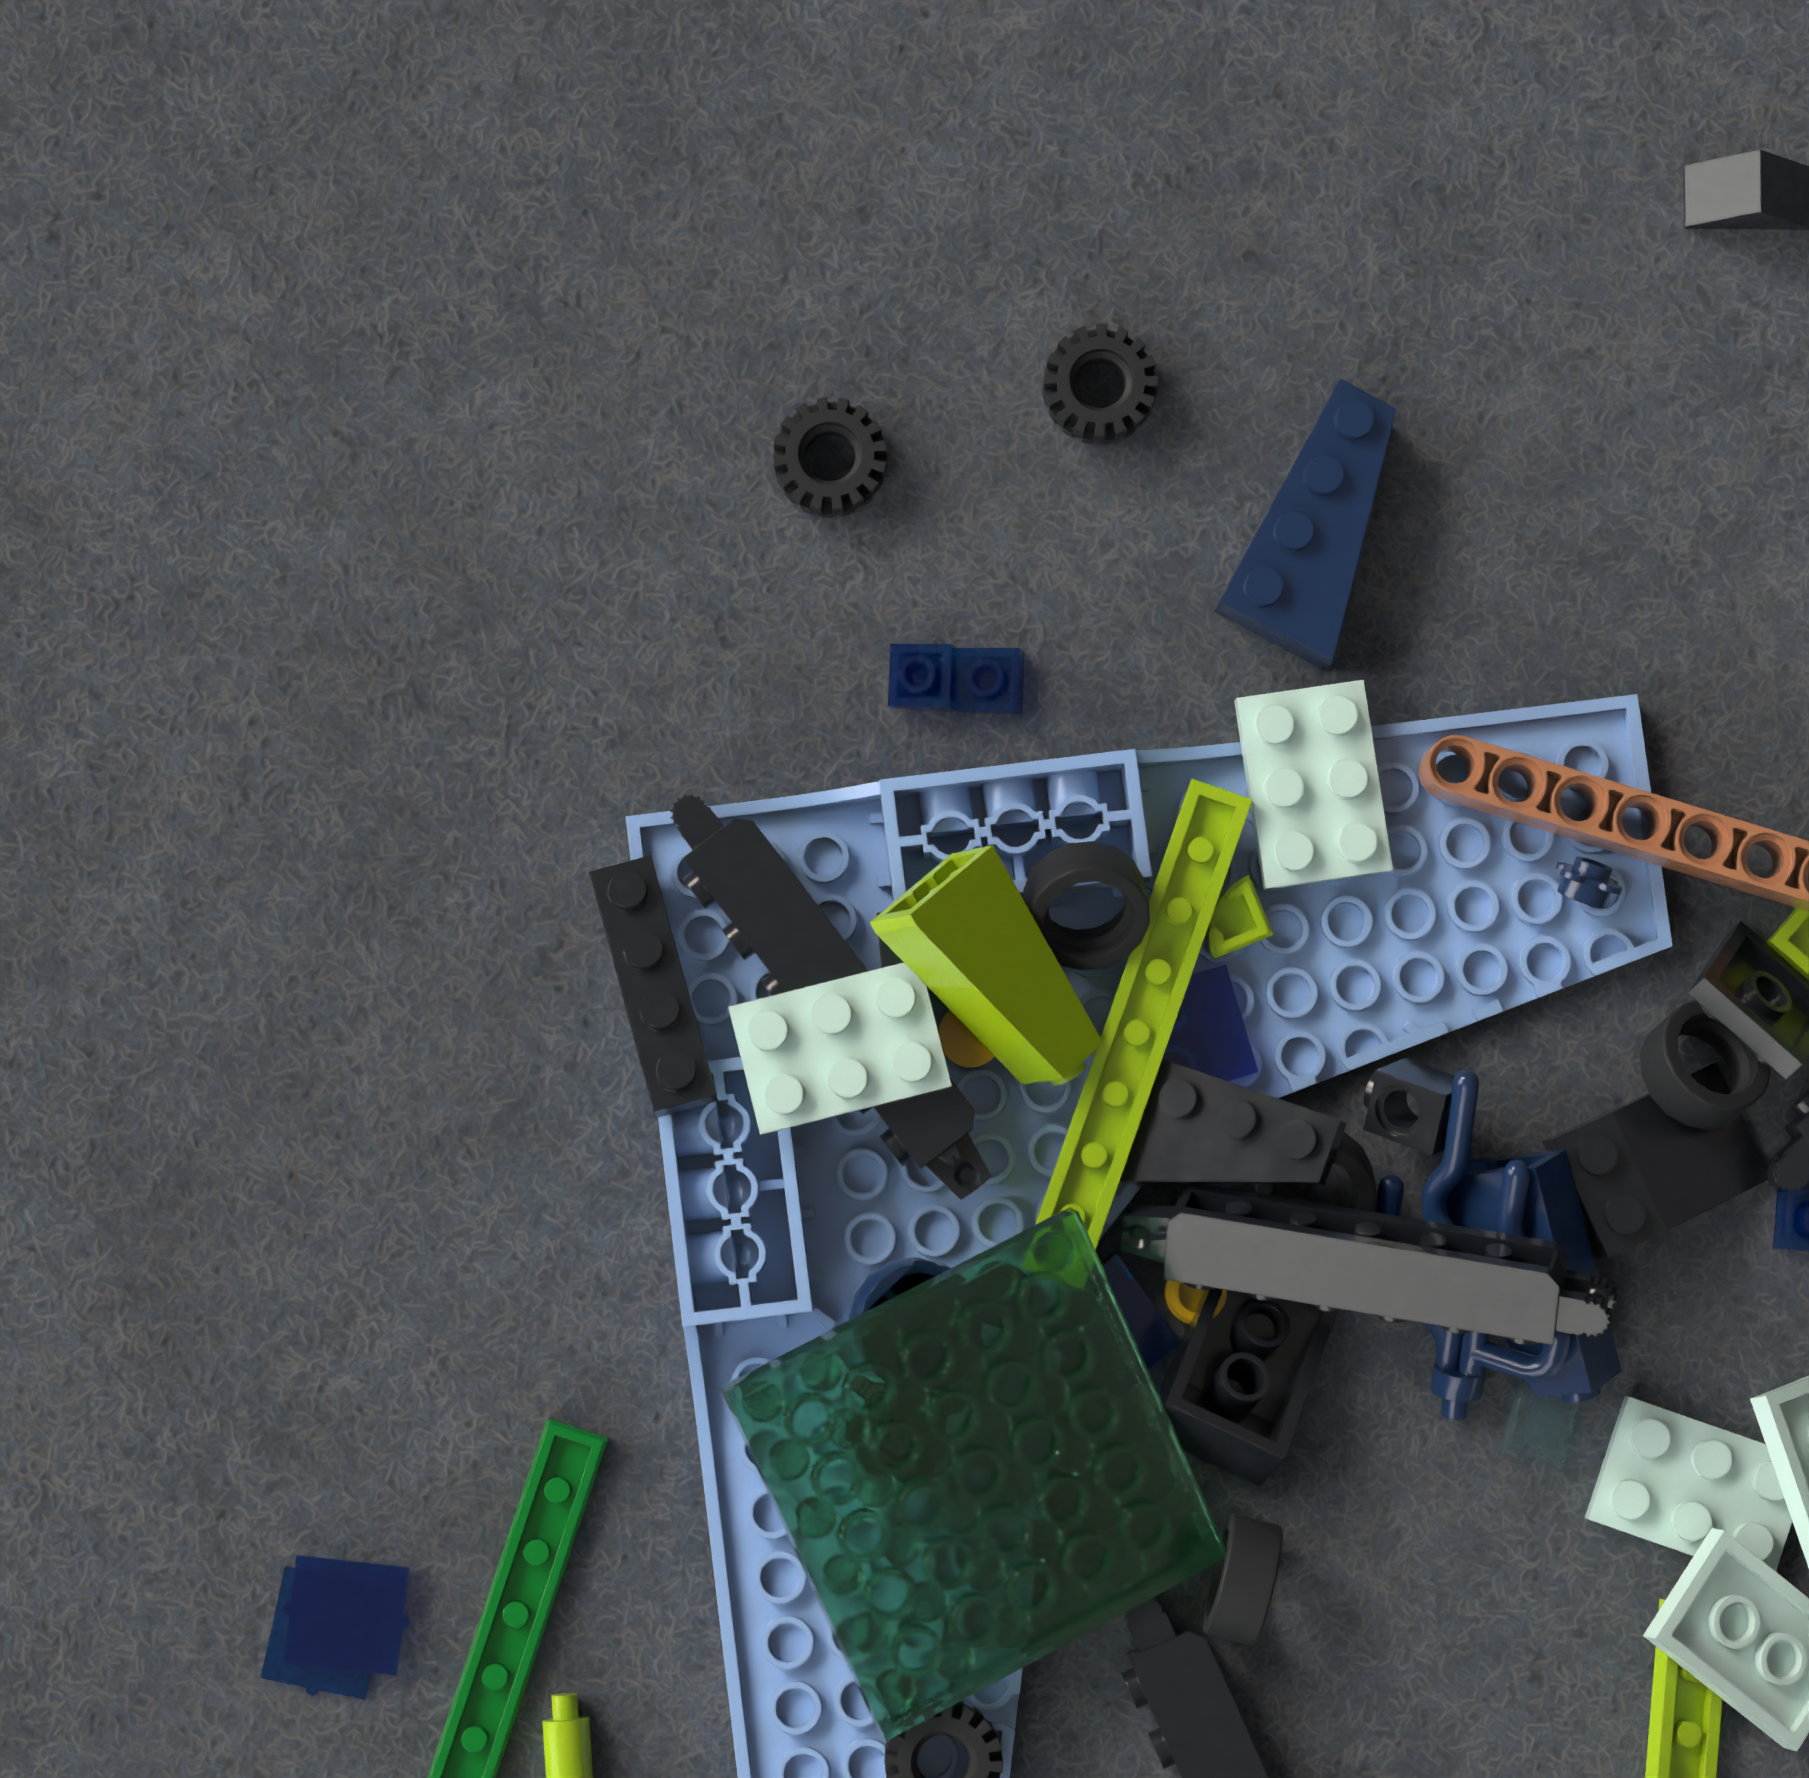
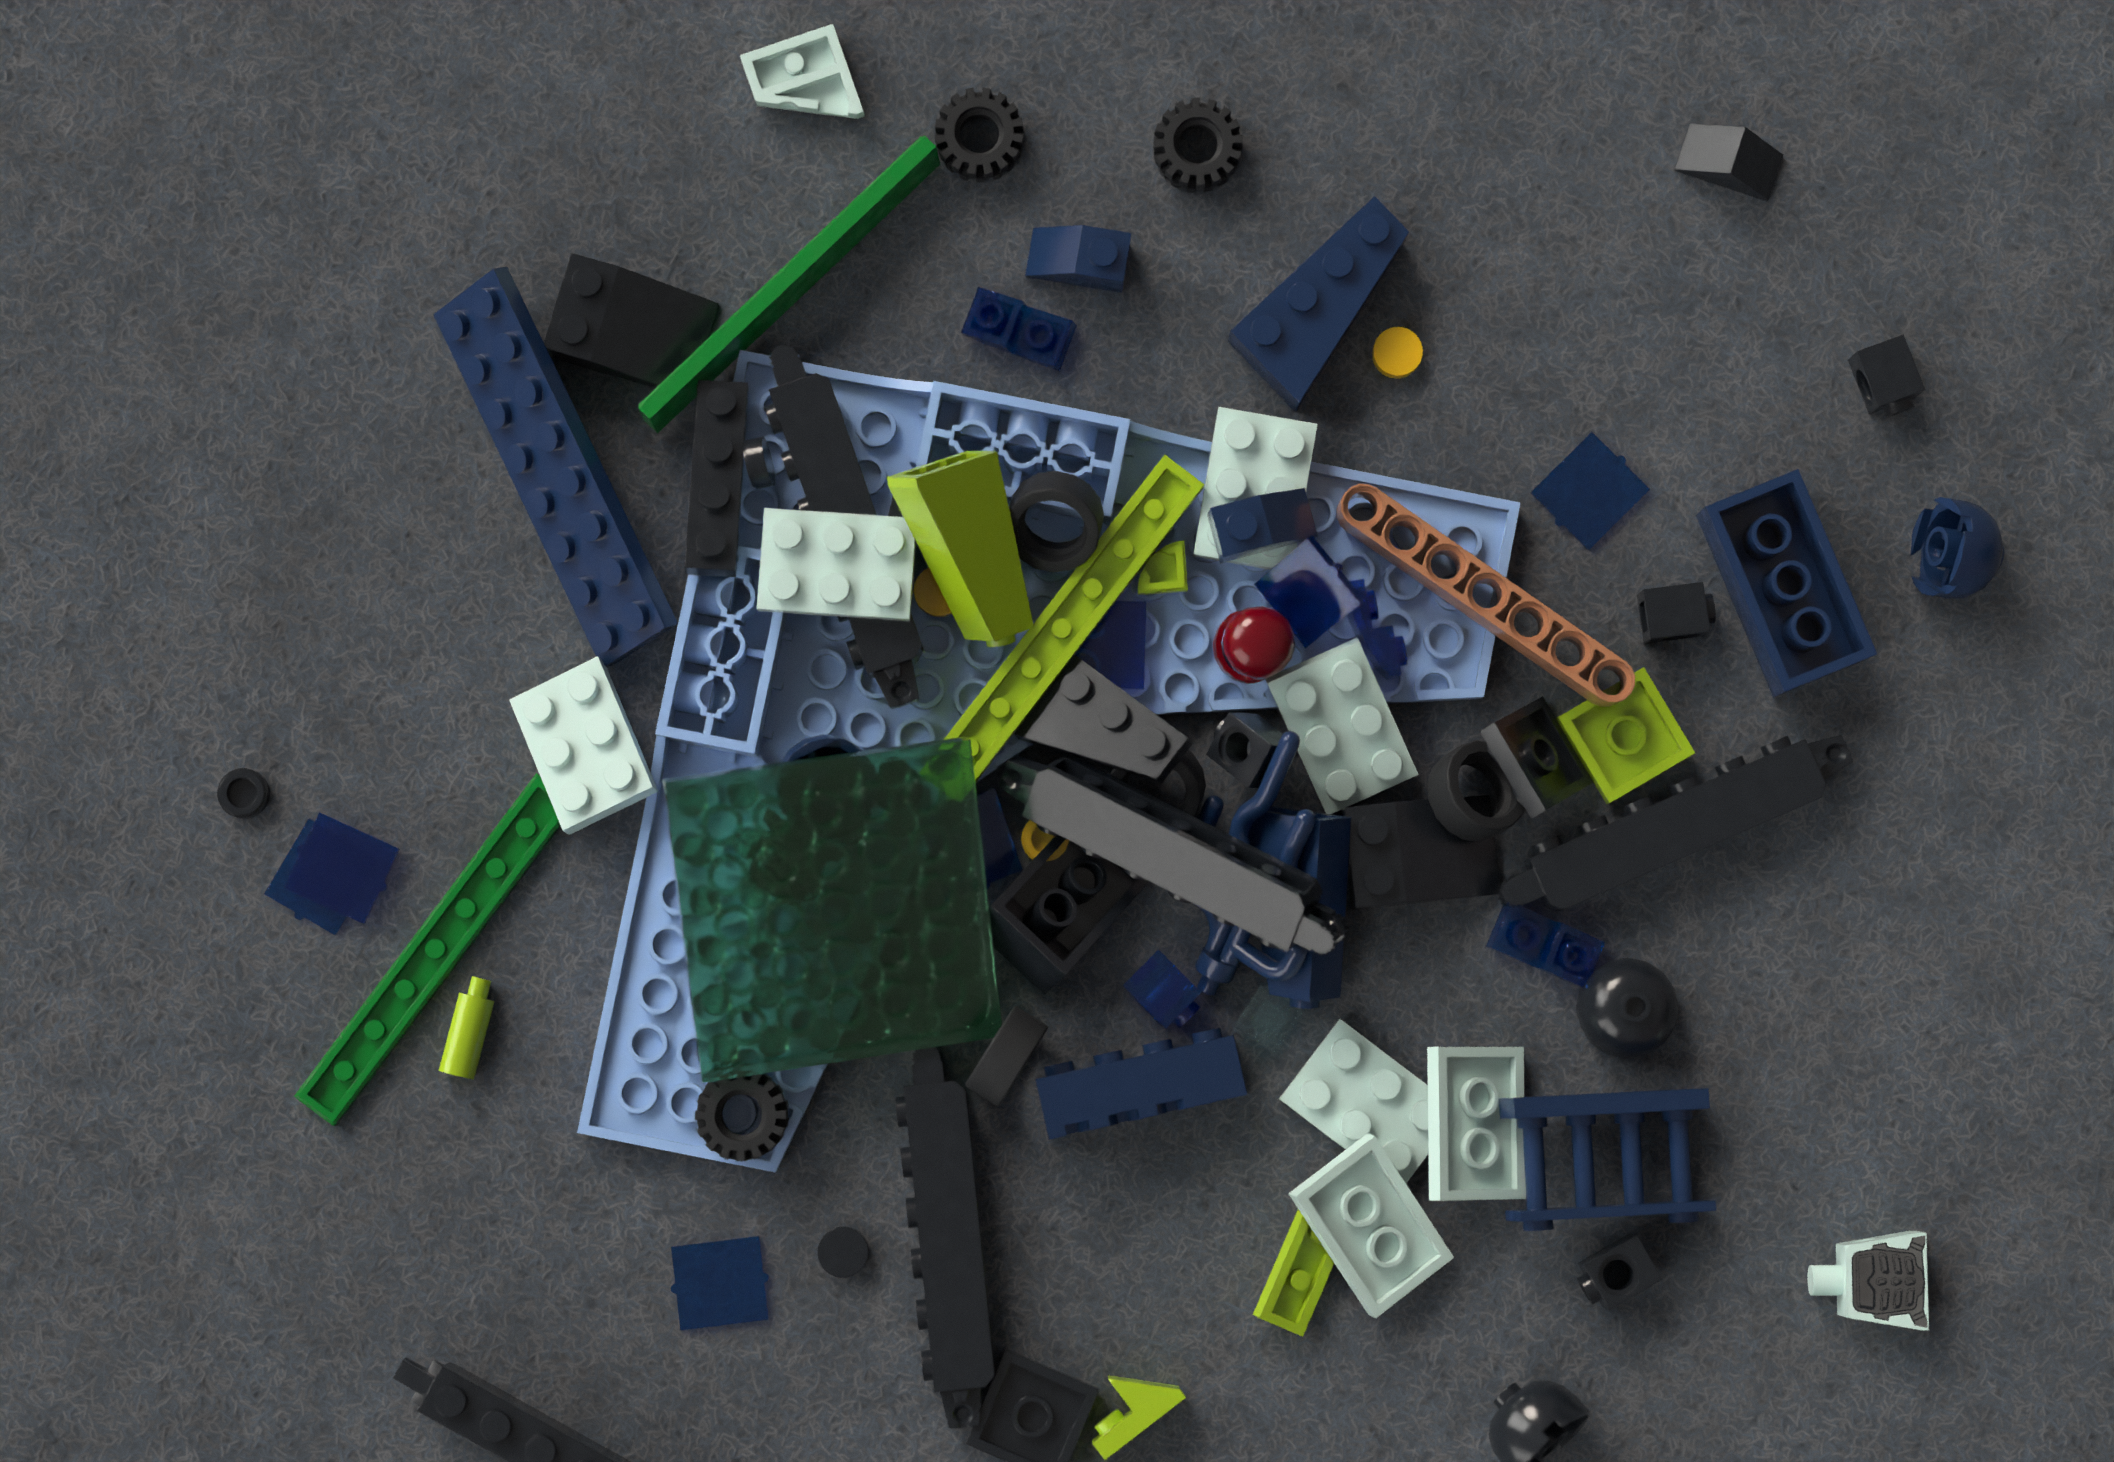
camera: 20 degrees right, 0 degrees up
(194, 1562) = (243, 793): none -> black tile
(447, 1036) = (554, 467): none -> dark blue plate
(481, 830) = (625, 322): none -> black slope
(591, 453) = (804, 75): none -> light aqua wing
(595, 1367) = (583, 745): none -> light aqua plate
(660, 715) = (790, 283): none -> green tile
(698, 950) = (759, 463): none -> black tile
(1002, 566) = (1079, 256): none -> dark blue slope
(1340, 827) = (1261, 523): none -> dark blue slope
(1380, 973) = (1255, 643): none -> dark red helmet
(1404, 1434) = (1164, 991): none -> clear blue brick
(1414, 1559) = (1140, 1085): none -> dark blue wedge
(1424, 889) = (1309, 591): none -> clear blue piece
(1425, 558) = (1397, 352): none -> yellow tile
(1518, 1037) = (1342, 726): none -> light aqua plate
(1531, 926) = (1379, 643): none -> clear blue slope
(1587, 882) = (1434, 627): dark blue plate -> none
(1713, 651) = (1590, 491): none -> clear blue piece

